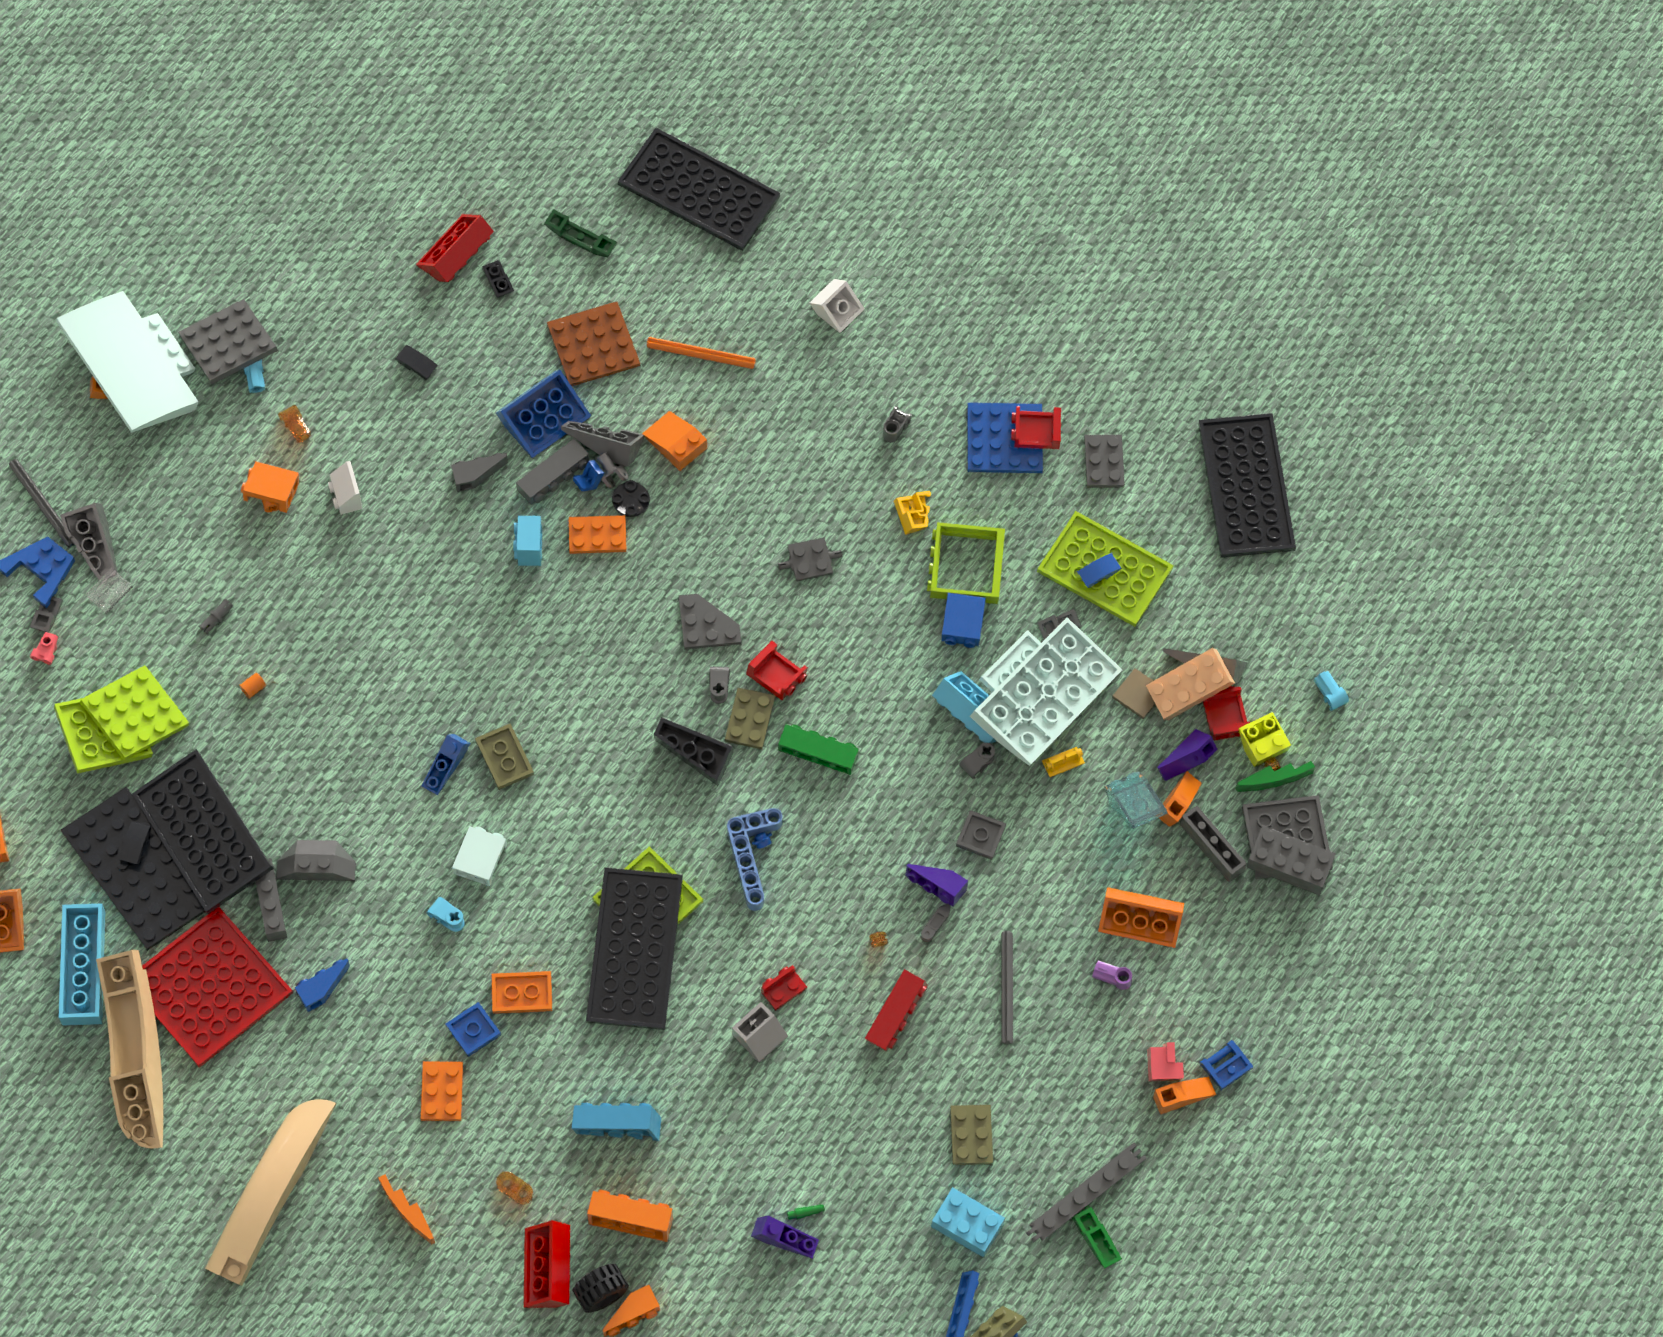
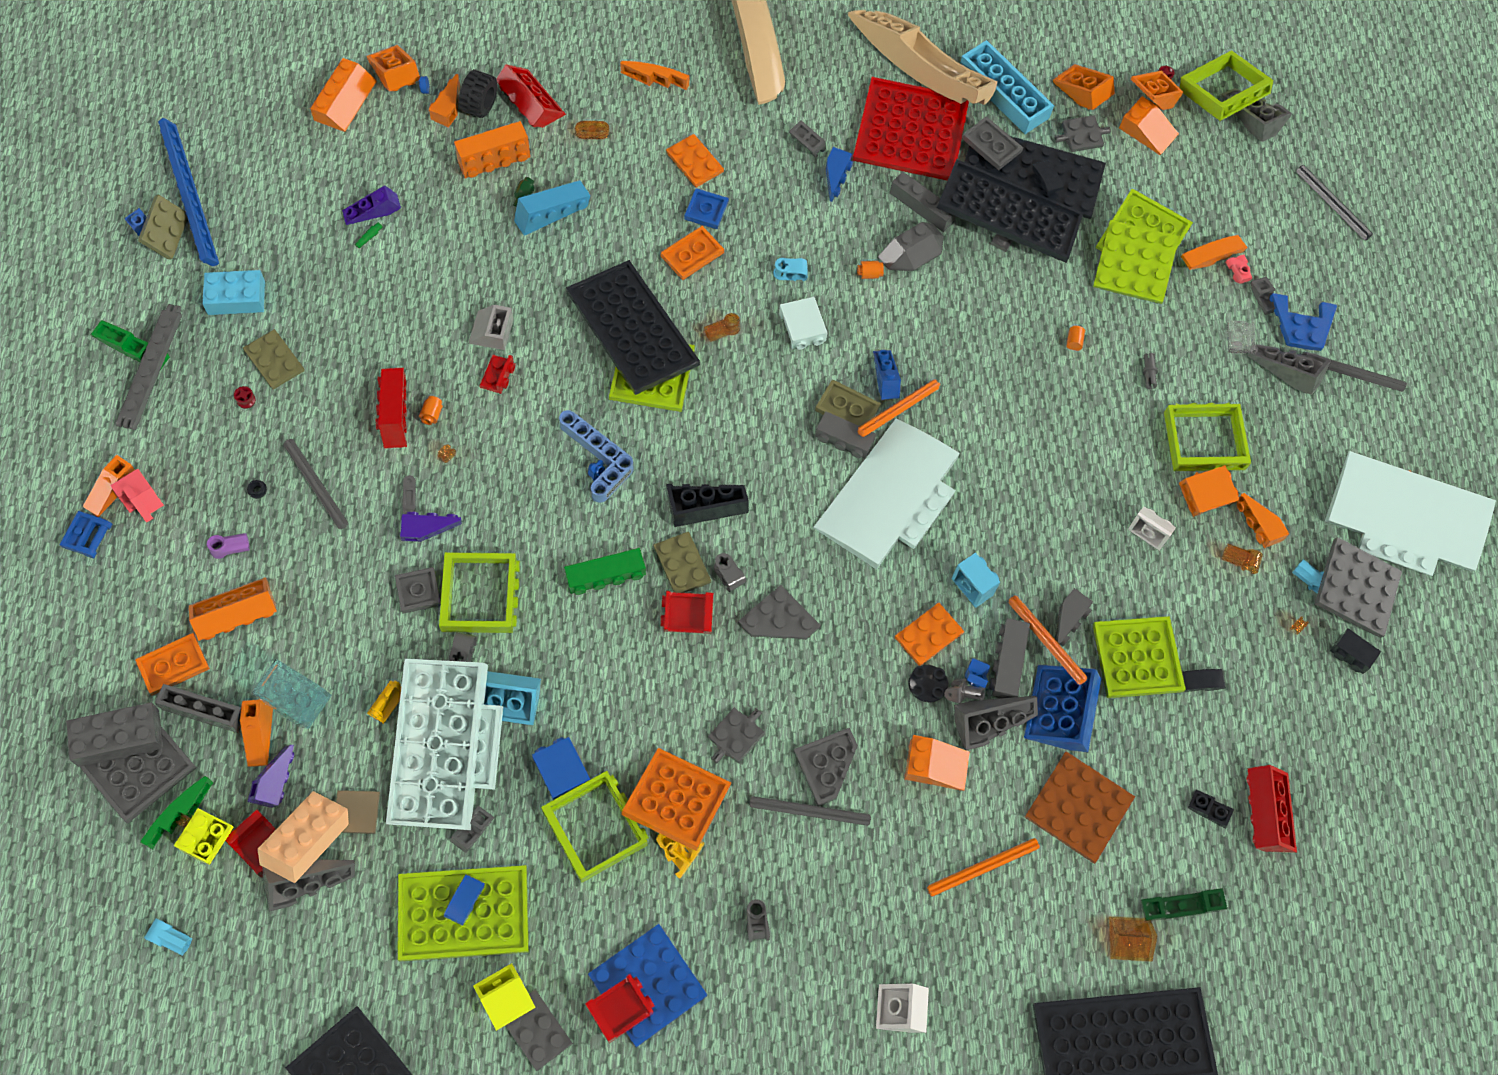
camera: 140 degrees right, 0 degrees up
(51, 874) = (1082, 133): none -> dark grey plate
(52, 678) = (1214, 251): none -> orange slope
(153, 910) = (992, 143): none -> dark grey plate
(241, 505) = (1180, 463): none -> lime window
(251, 431) = (1266, 525): none -> orange slope
(279, 302) = (1355, 651): none -> black brick
(302, 348) = (1299, 625): none -> clear orange bush
(319, 1036) = (808, 138): none -> dark grey hinge
(375, 867) = (870, 269): none -> orange brick
(450, 410) = (1138, 657): none -> lime plate
(464, 721) = (898, 408): none -> orange axle
(513, 461) = (1047, 639): none -> orange axle
(529, 731) = (844, 435): none -> dark grey brick
(531, 660) = (891, 495): none -> light aqua slope
(556, 899) = (722, 328): none -> clear orange piece
(629, 1162) = (524, 188): none -> dark green plant
(635, 241) = (1132, 939): none -> clear orange slope
(758, 493) = (826, 764): none -> dark grey plate
(797, 471) = (810, 810): none -> dark grey axle
(865, 988) = (431, 410): none -> orange brick
(892, 538) = (676, 799): none -> orange plate
(935, 840) = (447, 586): none -> lime window
(1019, 1104) = (242, 393): none -> dark red wheel
(1059, 1008) = (254, 484): none -> black plate
(1113, 487) = (504, 996): none -> neon yellow slope
(1215, 901) = (172, 663): none -> orange plate

